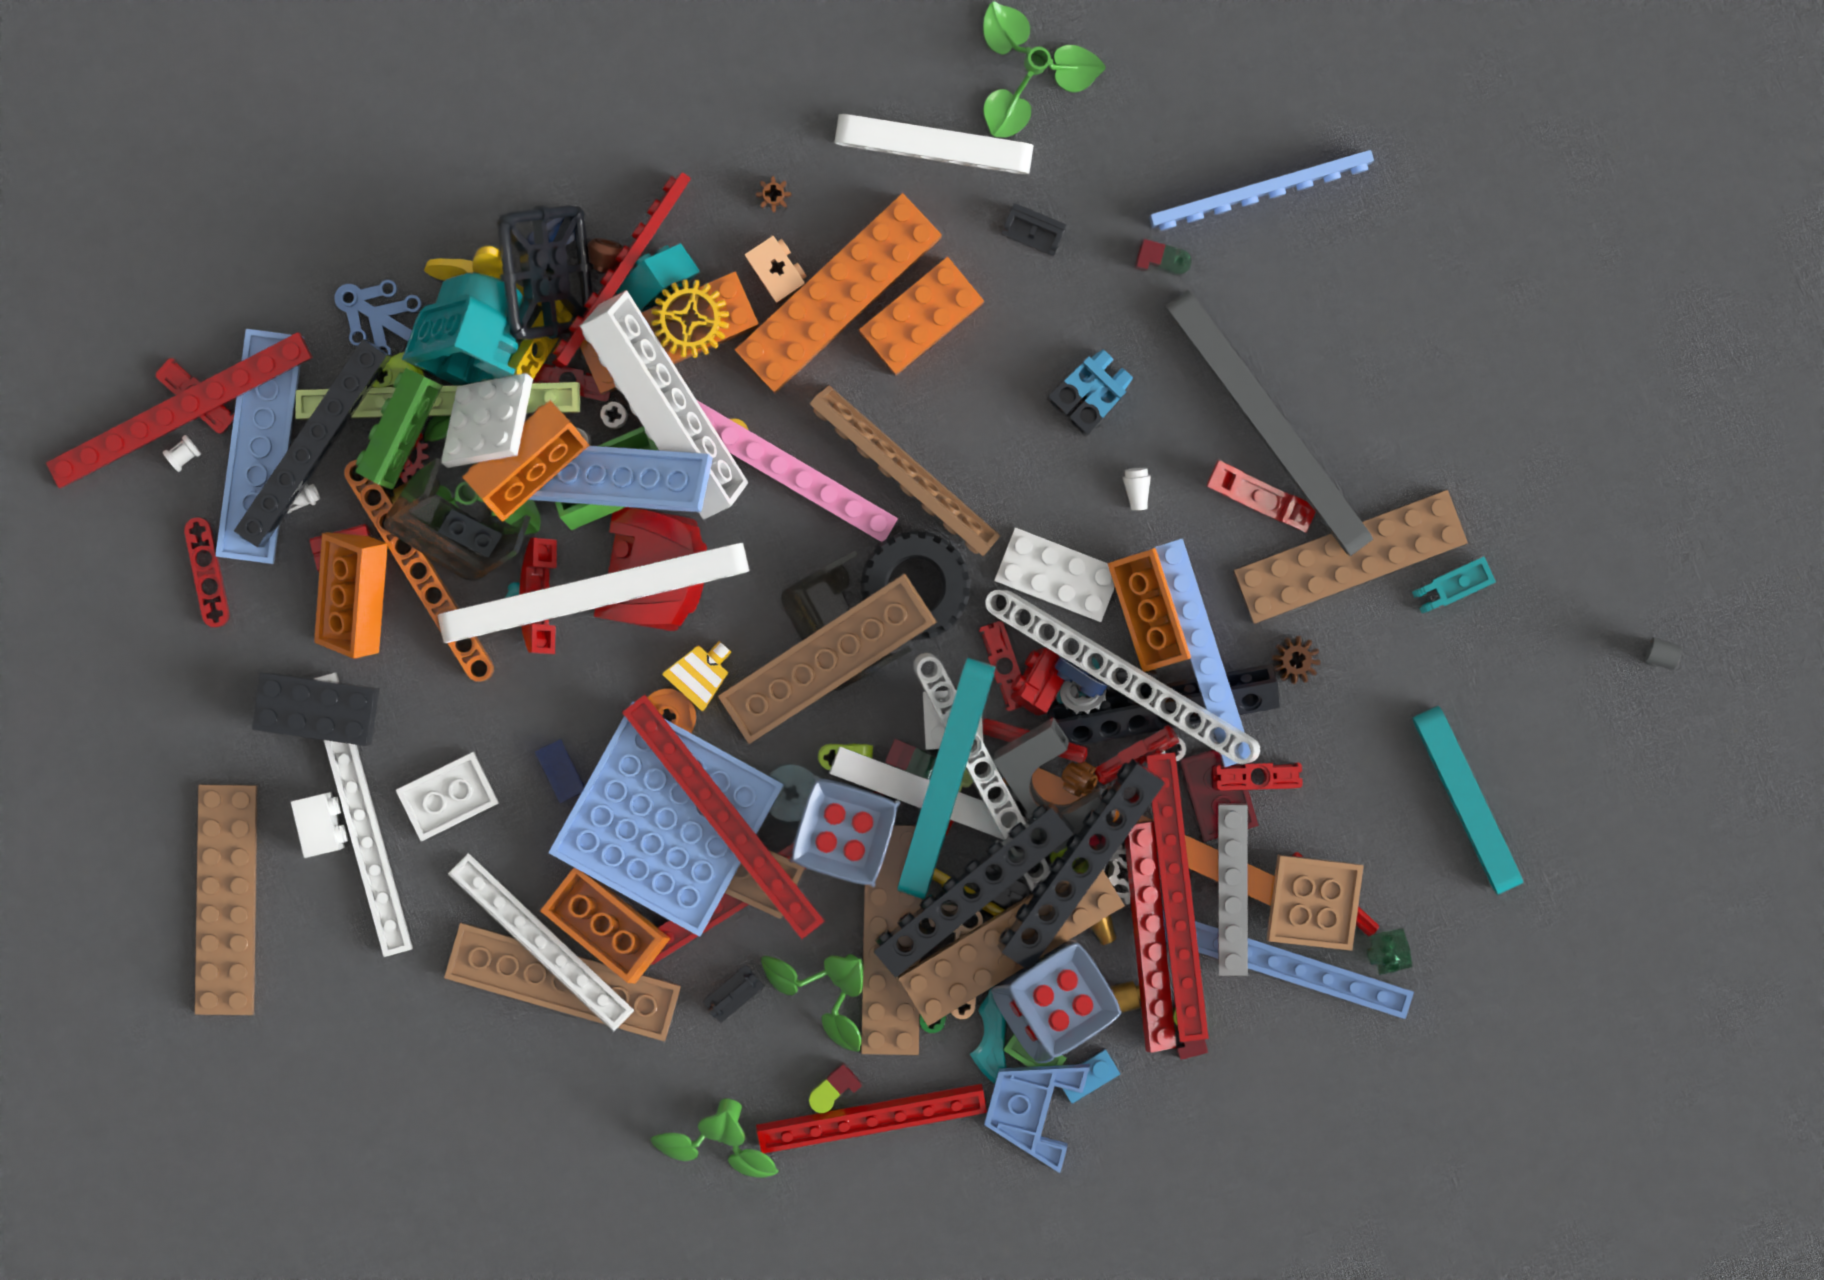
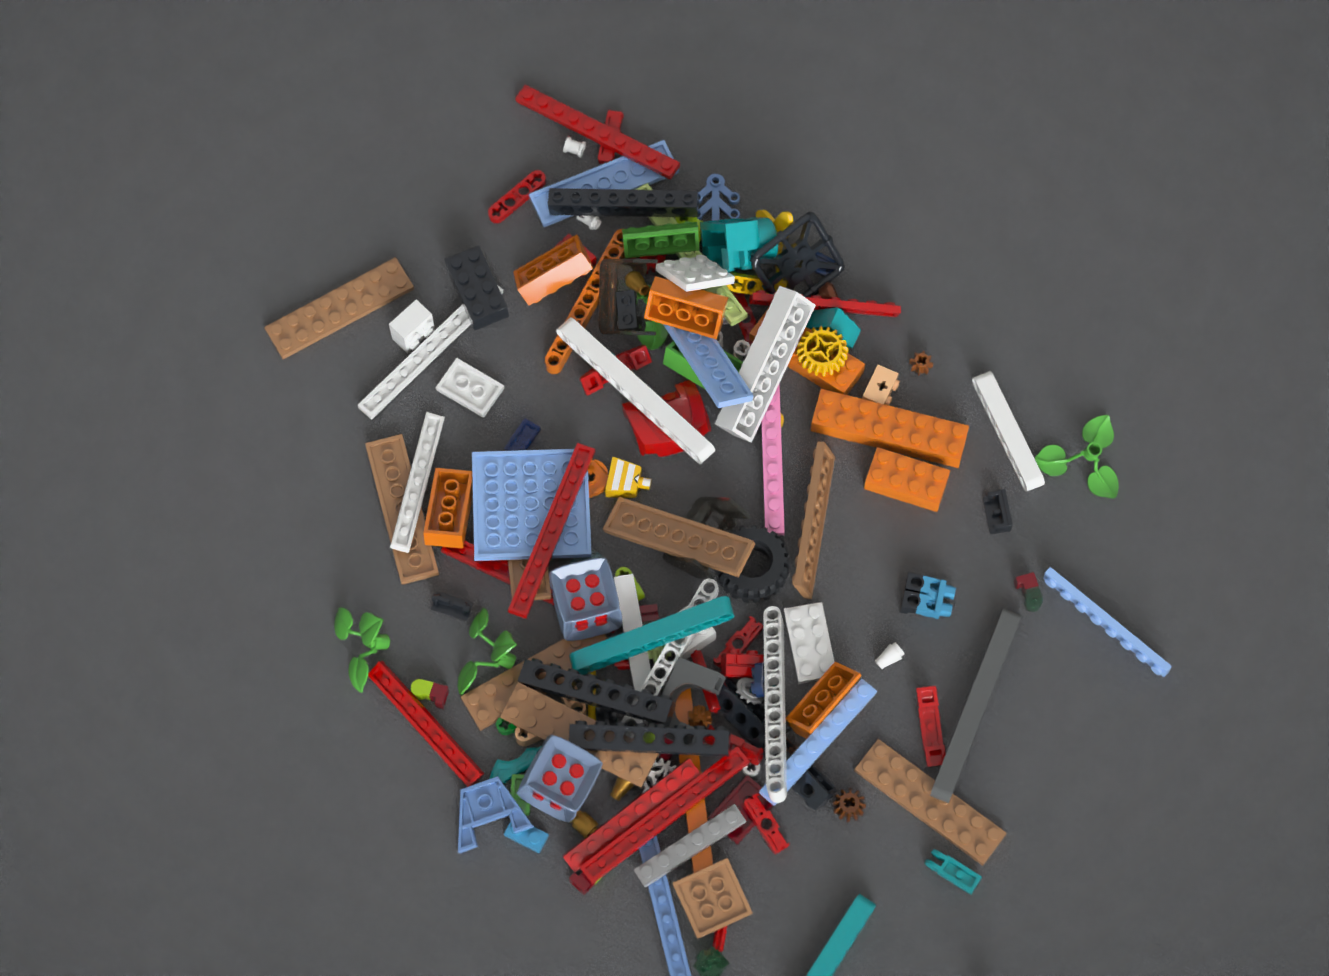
camera: 65 degrees right, 20 degrees down
(446, 500) = (636, 282): none -> pearl gold cone

